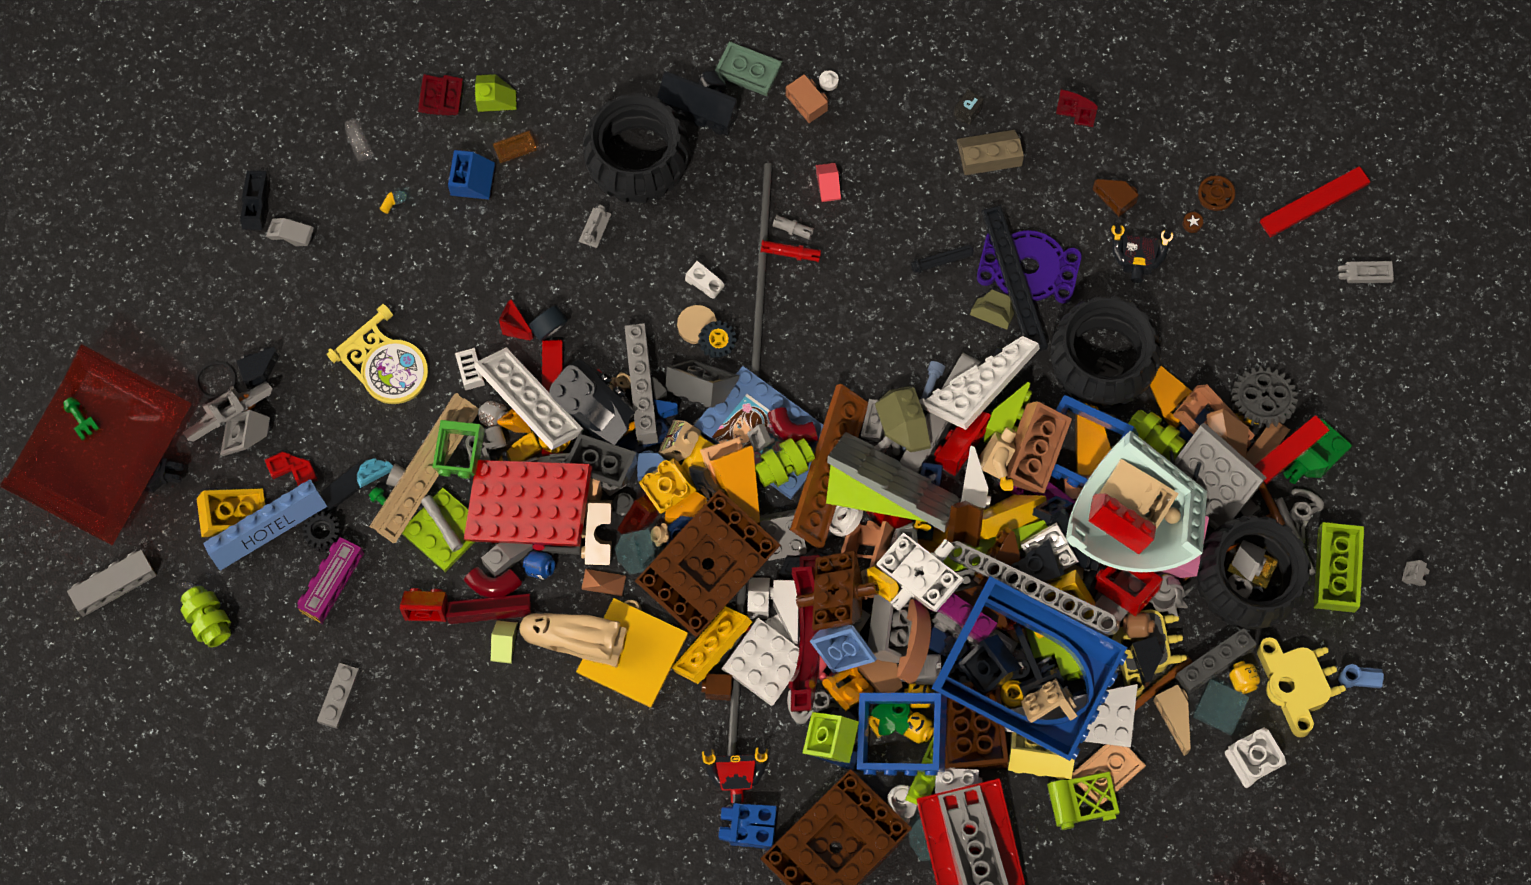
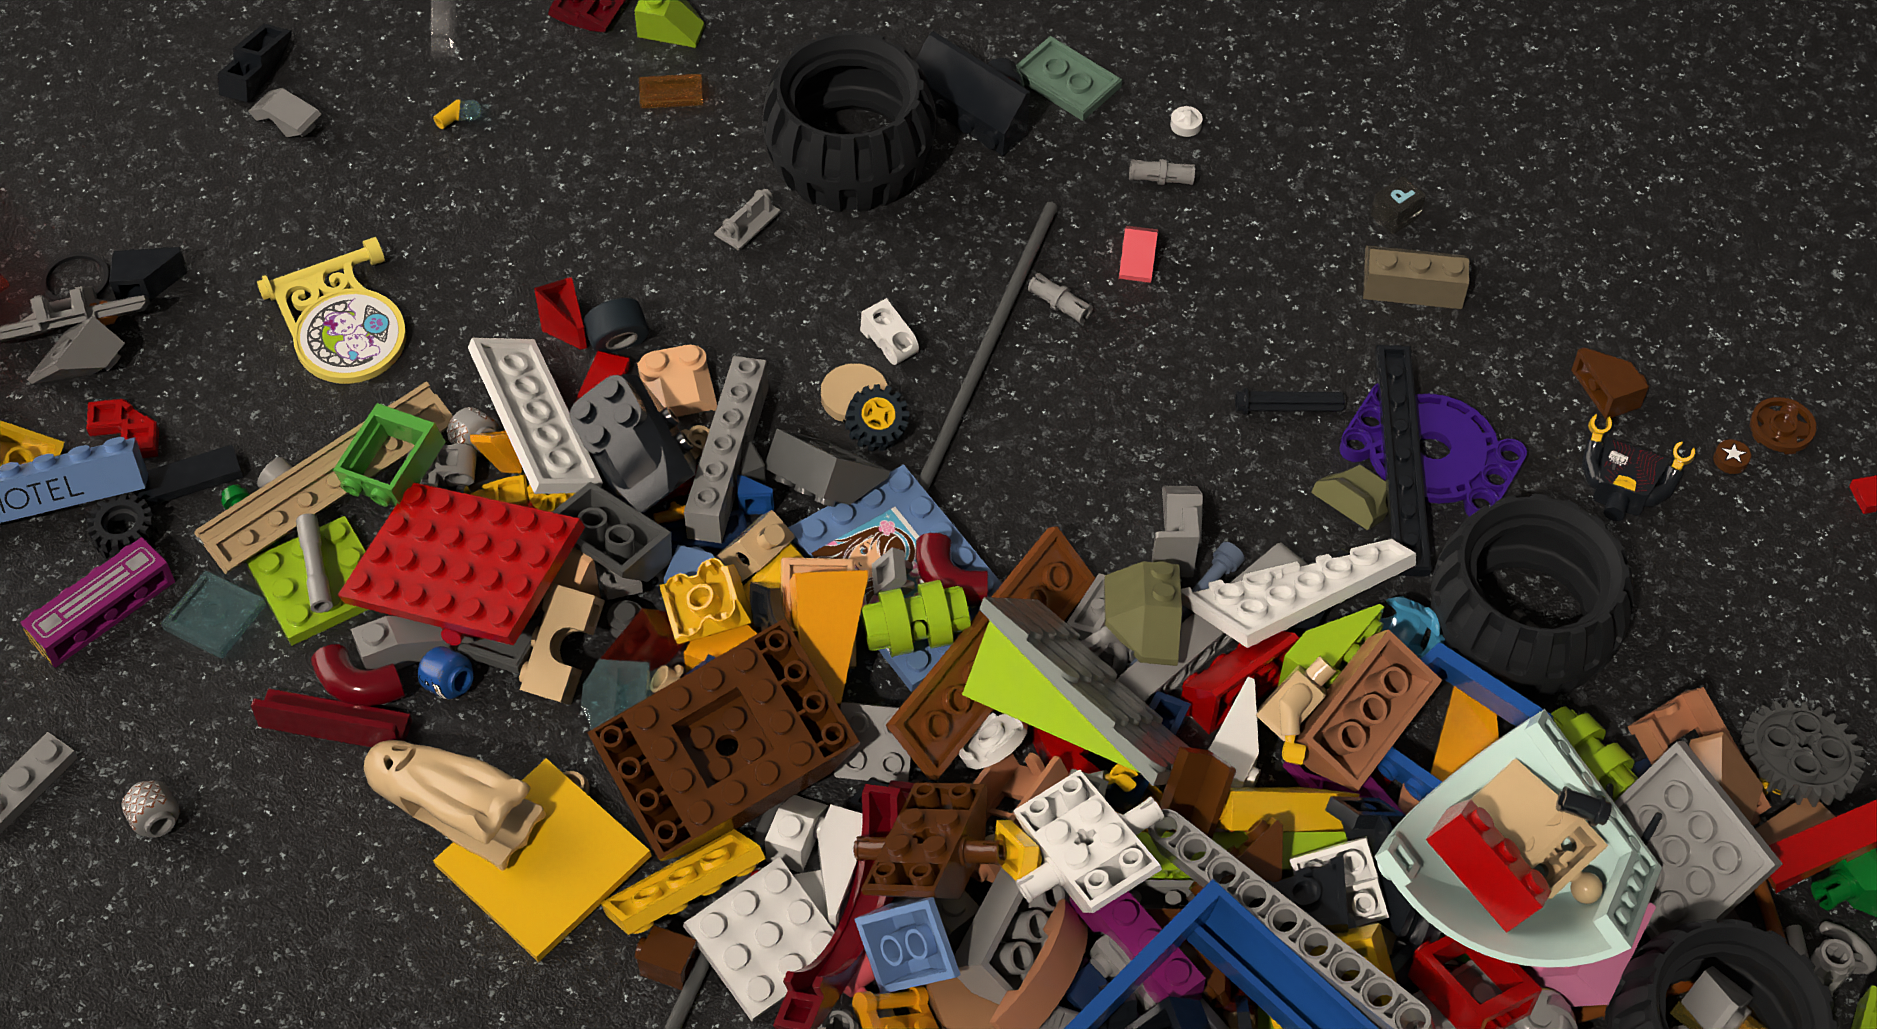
camera: 15 degrees right, 15 degrees down
(372, 470) = (241, 460): medium azure tile -> none
(395, 567) = (213, 614): none -> clear light blue tile
(416, 689) = (150, 808): none -> light grey head
(424, 605) = (224, 680): red slope -> none
(471, 175) = (585, 104): blue slope -> none
(473, 382) = (463, 380): white slope -> none
(503, 641) = (331, 778): yellowish green slope -> none
(595, 346) = (679, 379): none -> light nougat slope
(603, 582) = (543, 734): nougat slope -> none
(790, 251) = (1044, 327): red pin -> none
(807, 98) = (1143, 130): nougat brick -> none
(825, 122) = (1161, 172): none -> light grey pin
(903, 348) = (1177, 498): none -> light grey slope
(912, 375) = (1179, 546): none -> light grey panel
(1042, 387) = (1411, 623): none -> dark azure helmet
(1077, 106) = (1575, 241): dark red slope -> none
(1163, 478) = (1593, 809): none -> black pin
(1169, 394) = (1624, 700): light orange flag -> none

